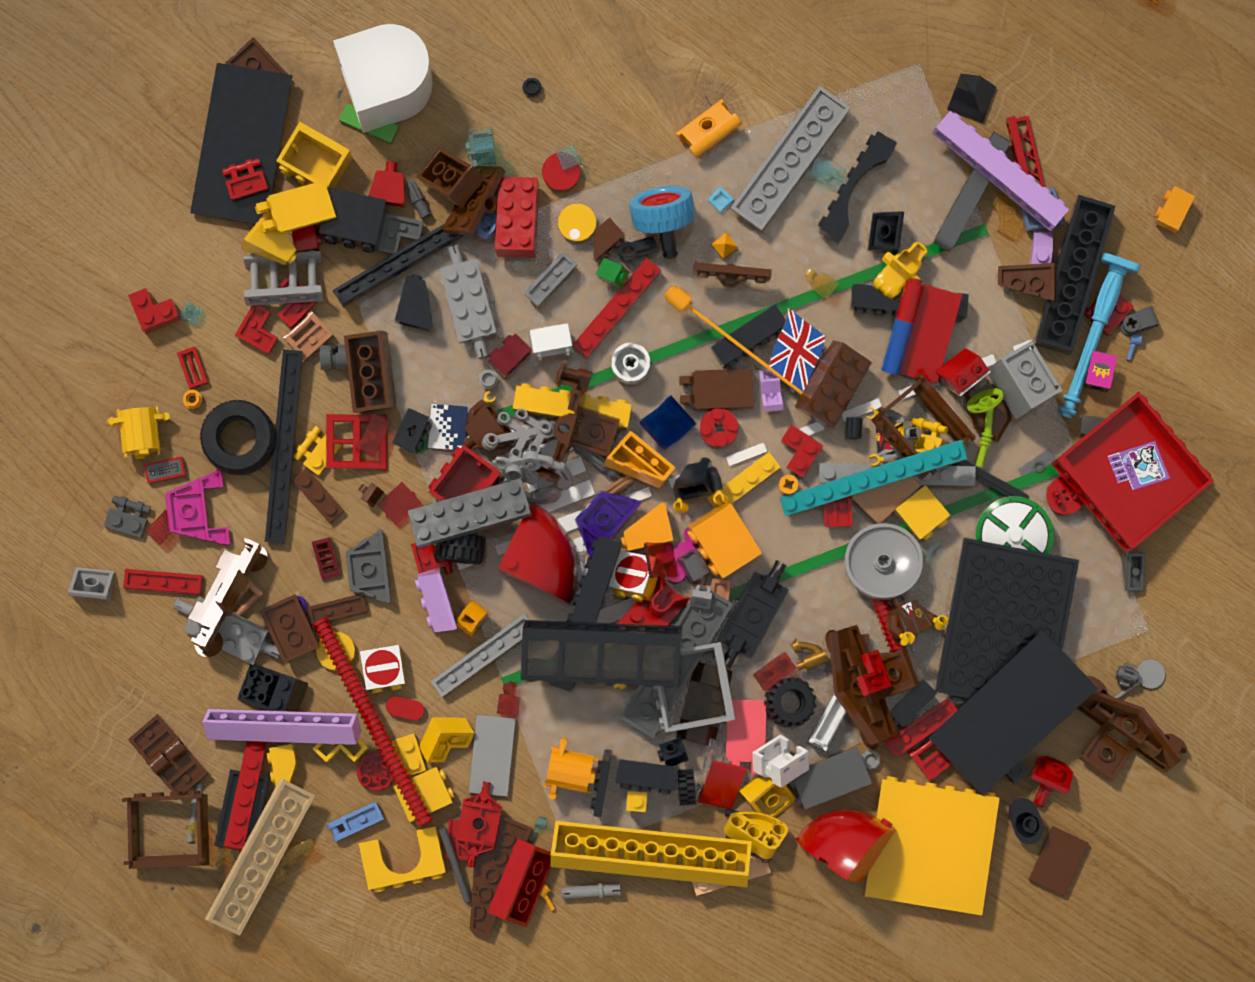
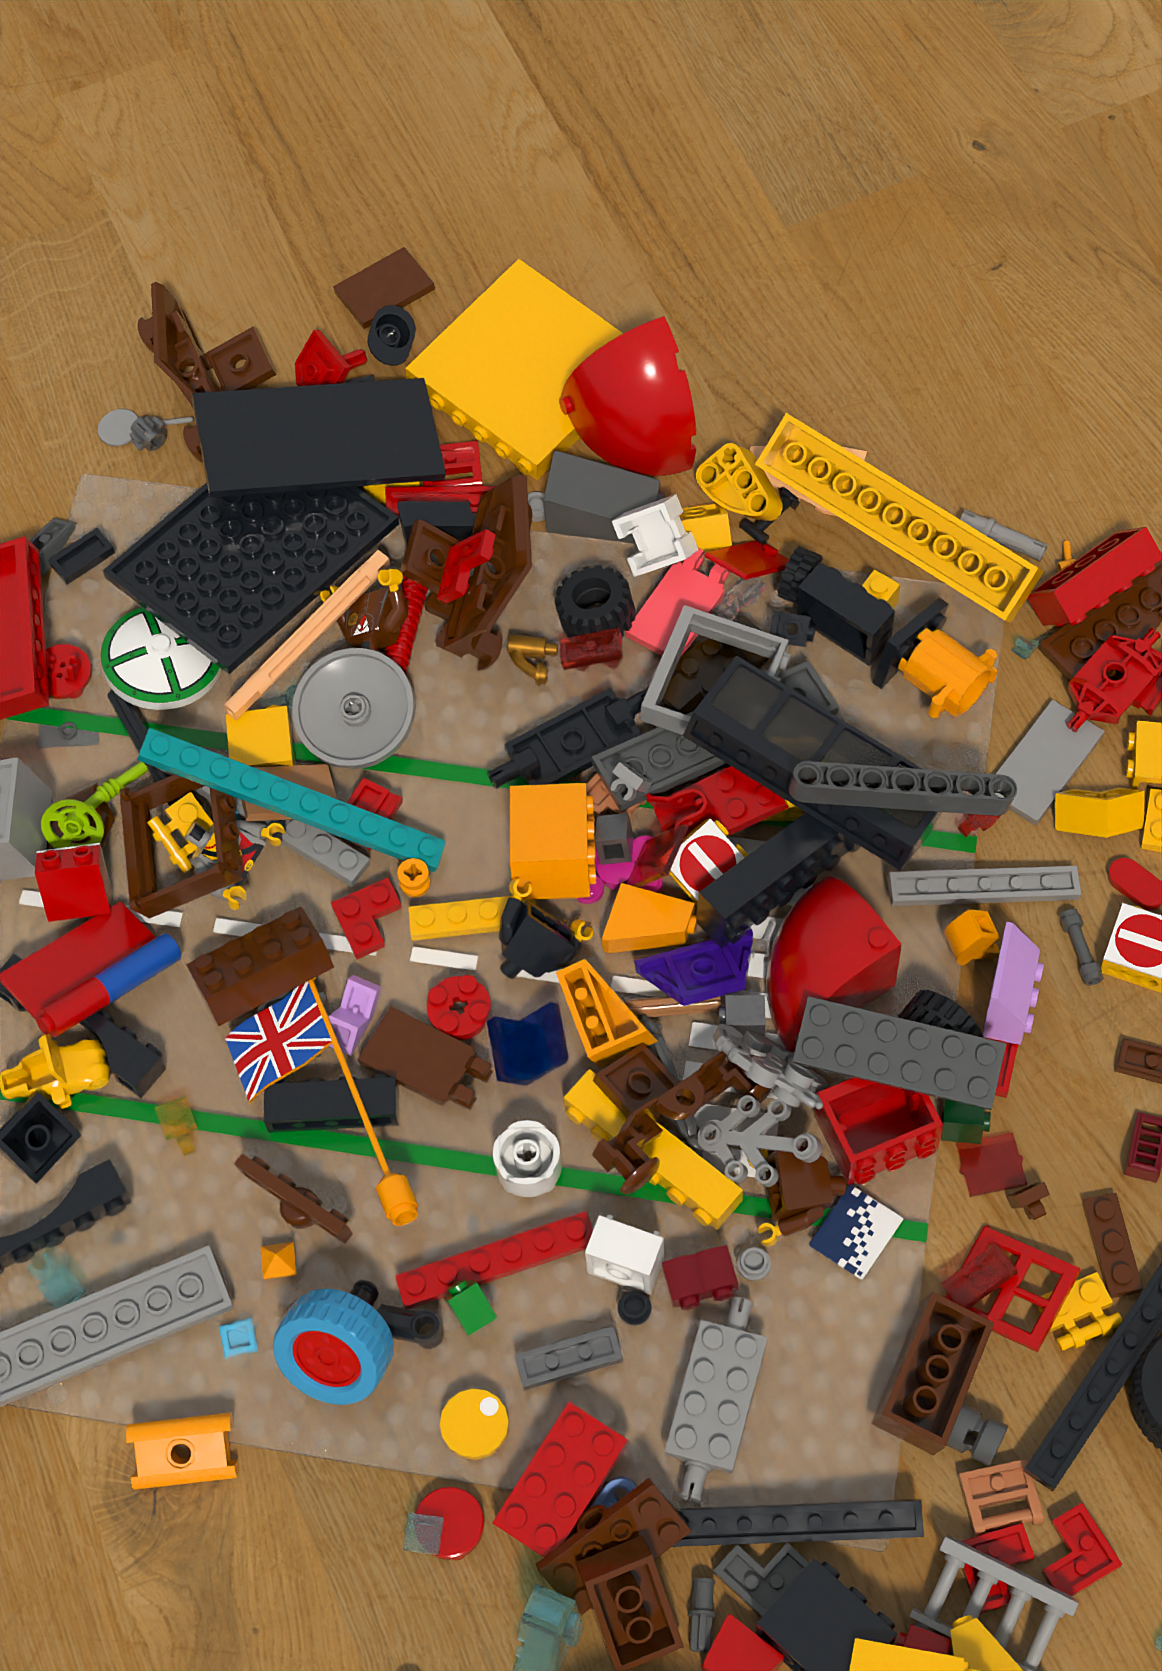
camera: 145 degrees left, 20 degrees down
(369, 568) = (1089, 1095): dark grey wing -> none
(405, 642) = (1090, 971): none -> dark grey bar
(410, 421) = (905, 1264): black brick -> none
(414, 305) = (804, 1438): black slope -> none
(533, 321) = (634, 1308): none -> black plate
(534, 656) = (916, 781): none -> dark grey beam
(567, 505) = (744, 1013): none -> flat silver brick
(606, 238) = (447, 1368): reddish brown slope -> none
(828, 724) = (558, 563): white container -> none
(853, 428) = (273, 901): black piece -> none
(935, 587) = (306, 635): none -> light nougat piece
(1106, 573) = (81, 556): none -> black tile

